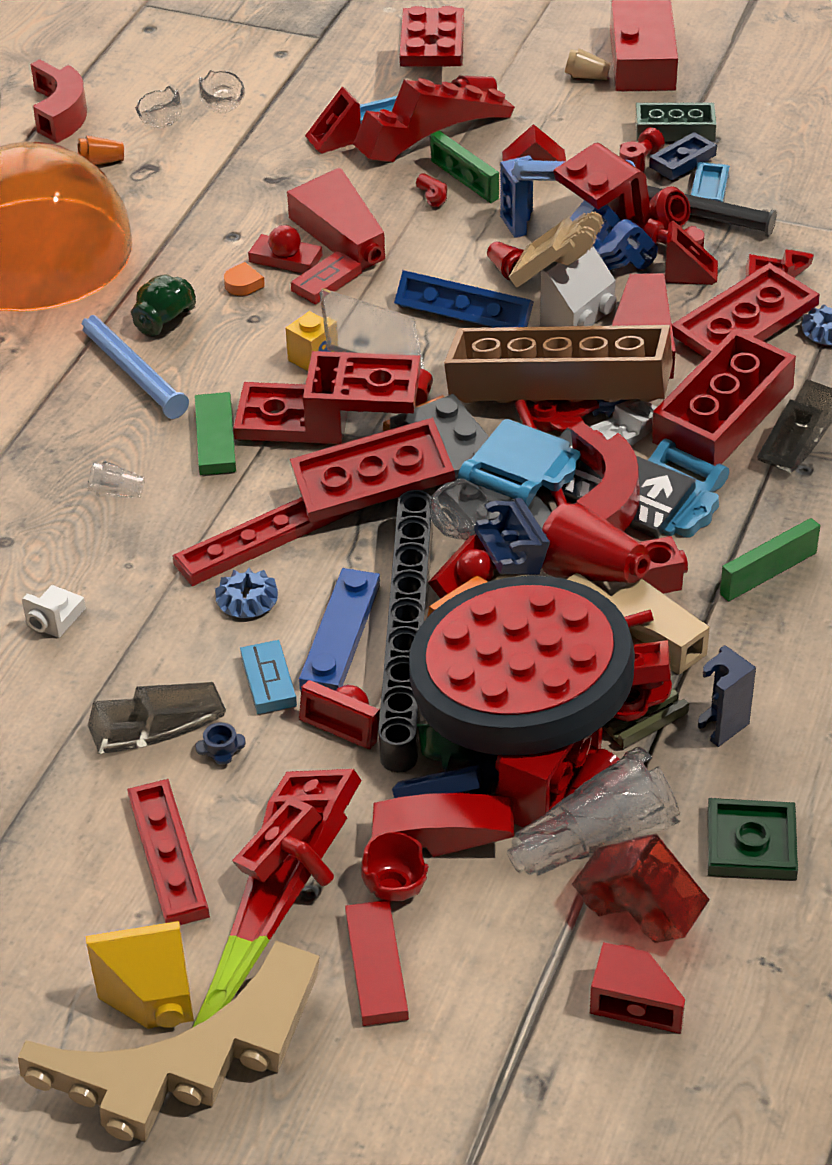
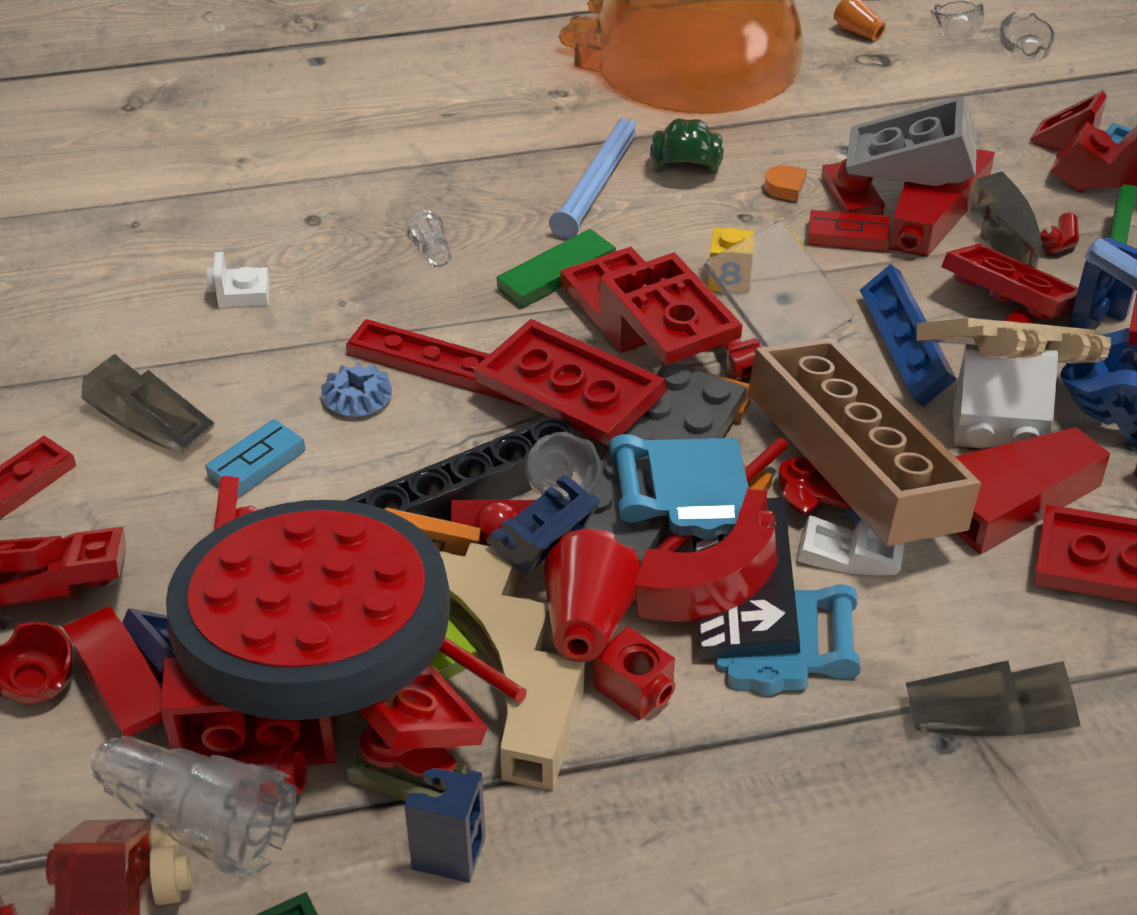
camera: 55 degrees right, 0 degrees up
(220, 742) = (142, 466): dark blue plate -> none
(310, 190) = (917, 146): none -> light grey slope
(341, 628) = (352, 474): plate -> none
(406, 203) = (1006, 218): none -> clear smoke slope
(466, 230) = (1011, 280): none -> red plate
(725, 397) = (961, 604): red brick -> none
(769, 559) = (736, 773): green tile -> none

